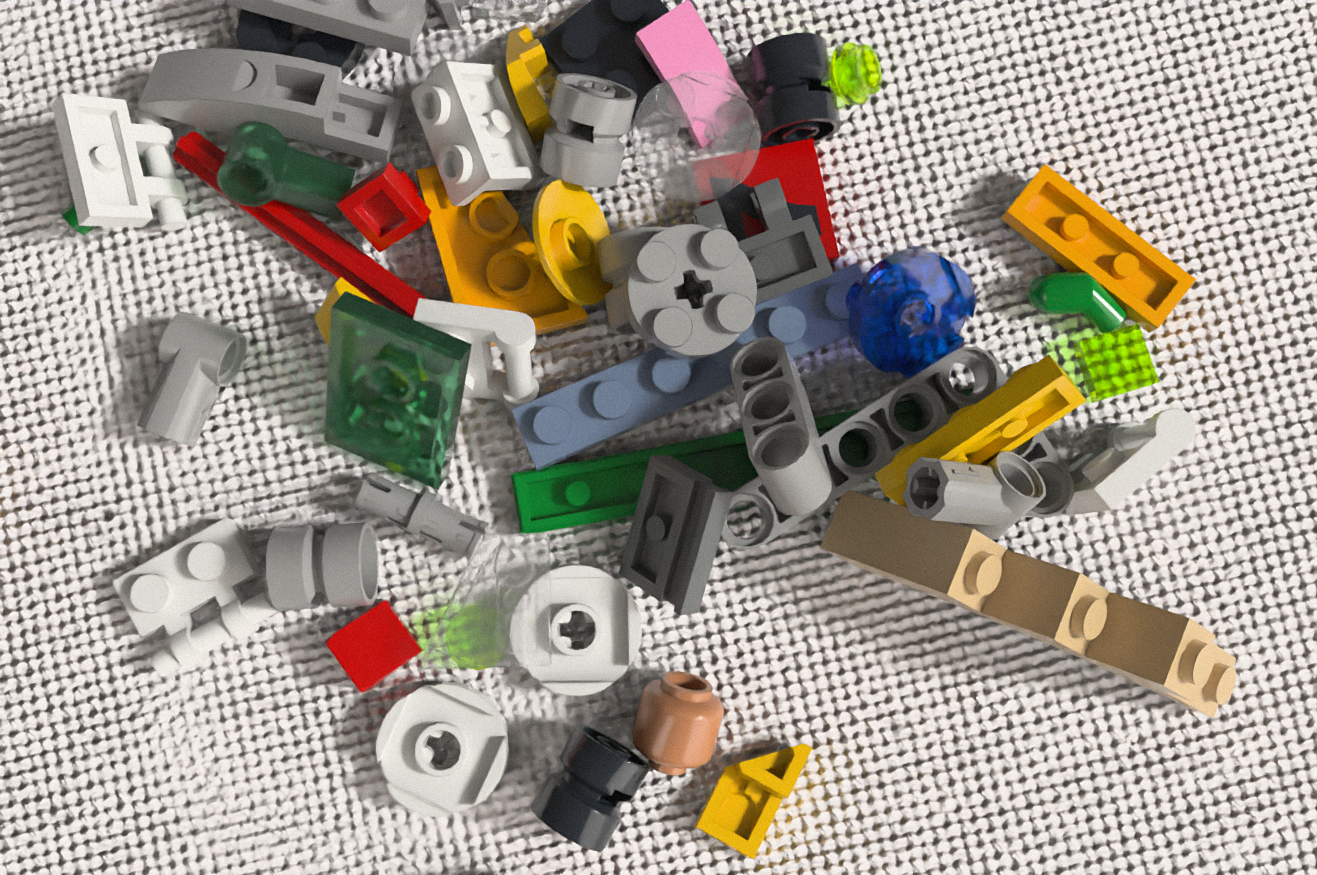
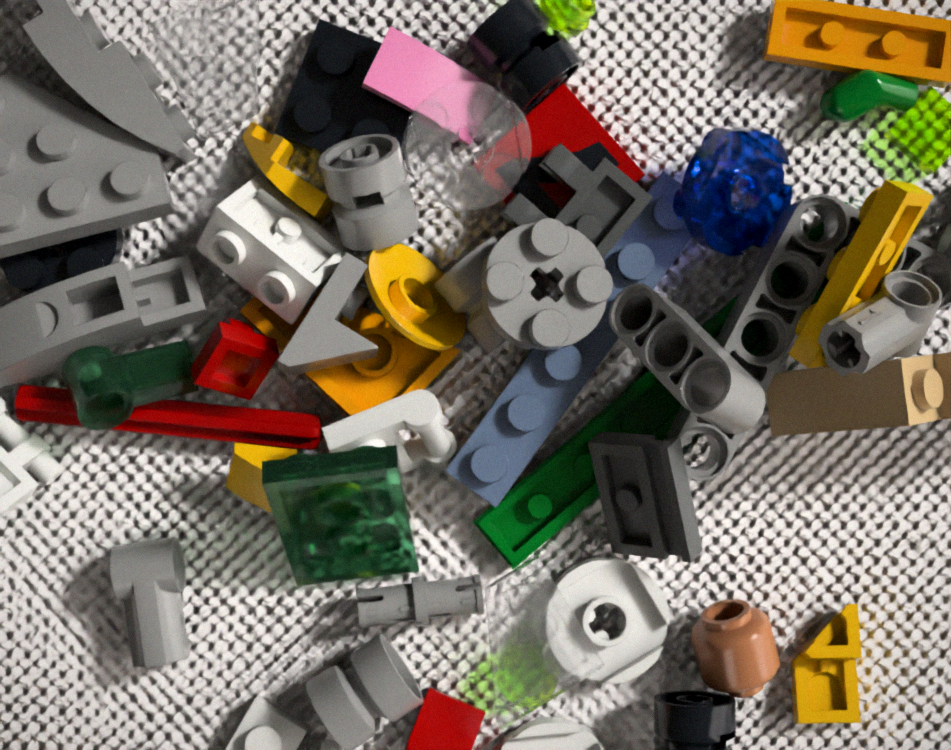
camera: 30 degrees left, 5 degrees up
(469, 225) = (321, 338): none -> light grey slope

